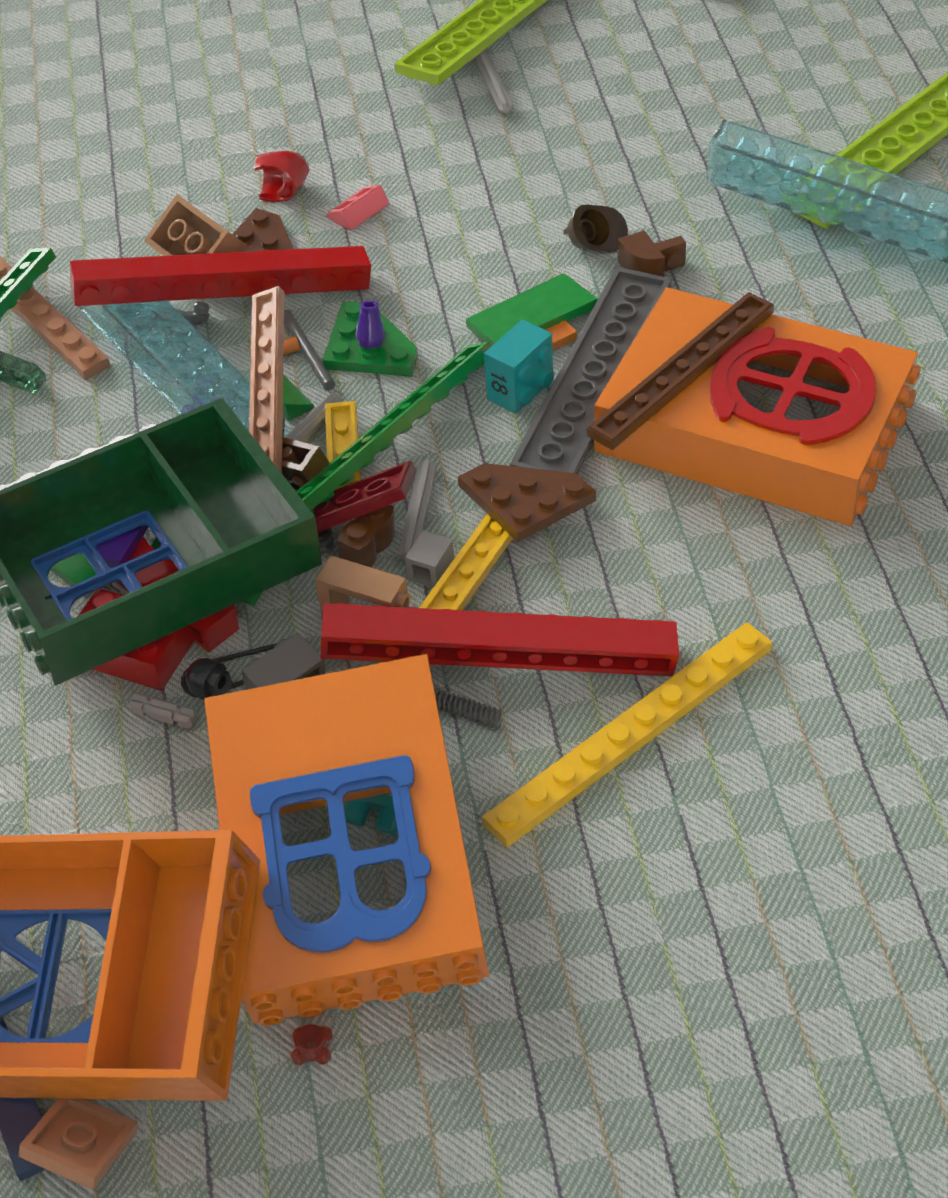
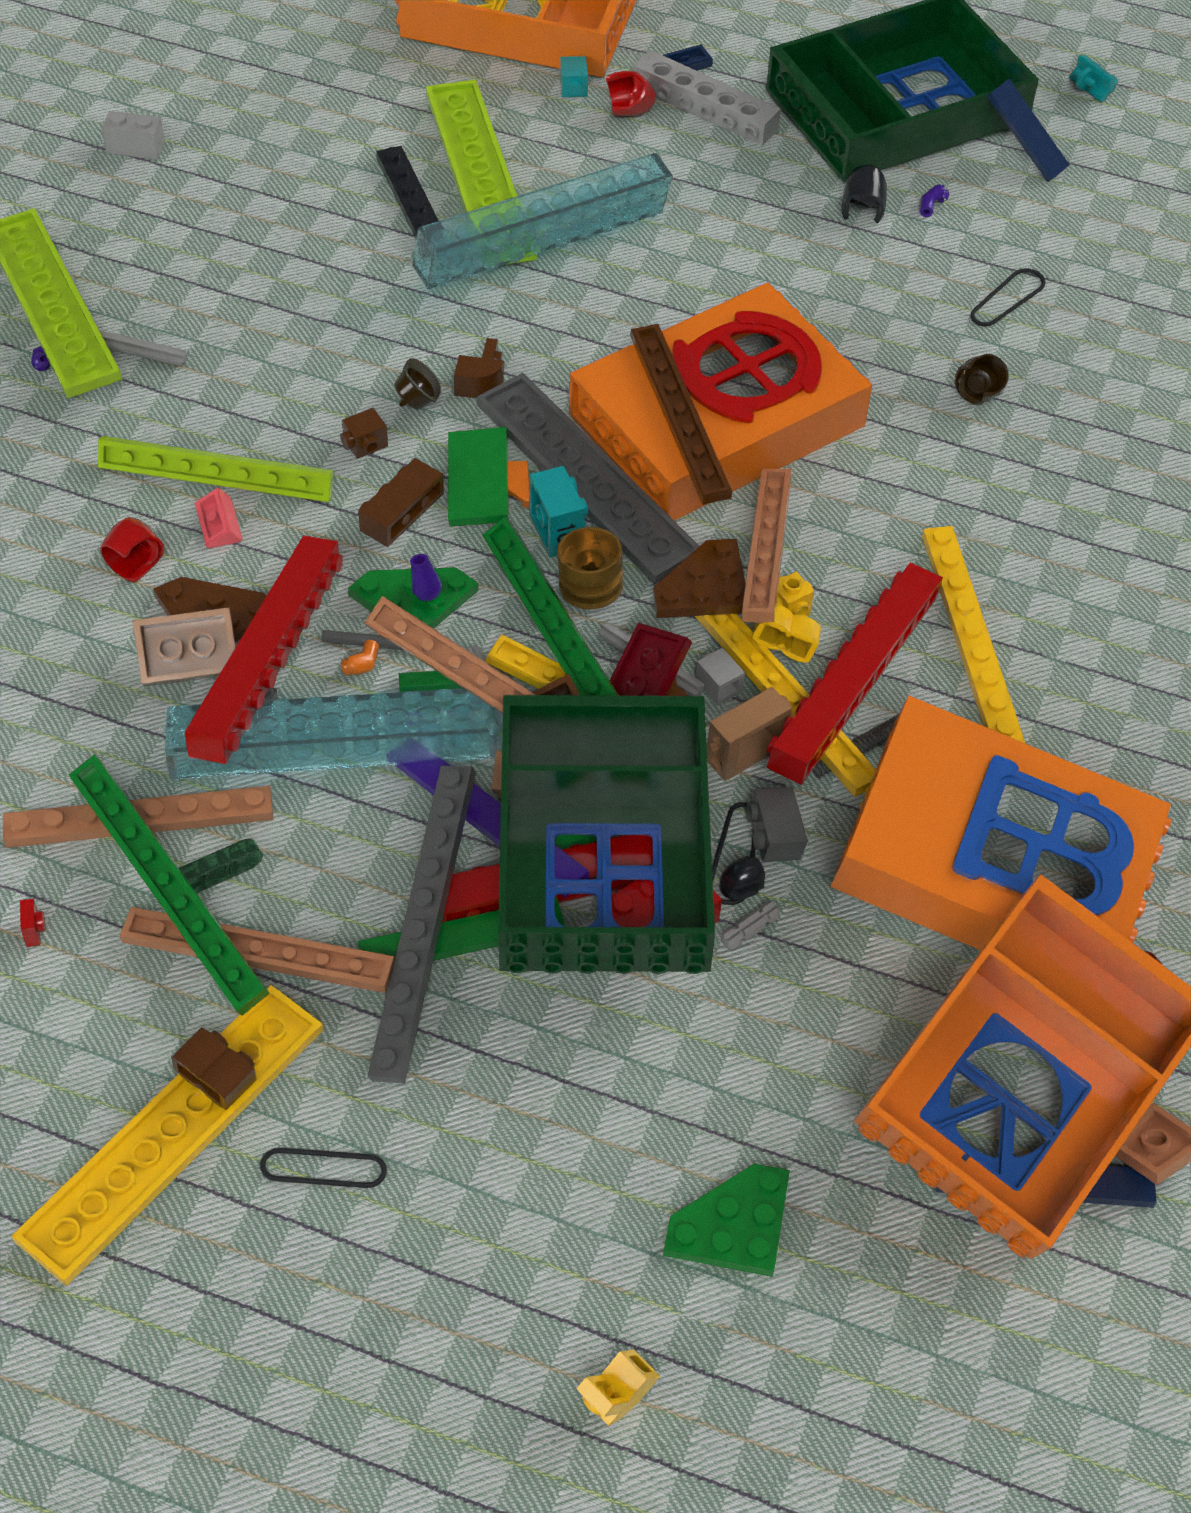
camera: 65 degrees left, 5 degrees up
(403, 179) = (215, 468): none -> lime plate
(457, 283) = (400, 502): none -> reddish brown brick
(473, 416) = (590, 568): none -> pearl gold wheel
(513, 576) = (792, 634): none -> yellow brick
(514, 229) = (364, 433): none -> reddish brown brick
(562, 563) = (795, 594): none -> yellow brick
(598, 510) = (767, 546): none -> nougat plate
(828, 117) = (406, 188): none -> black plate

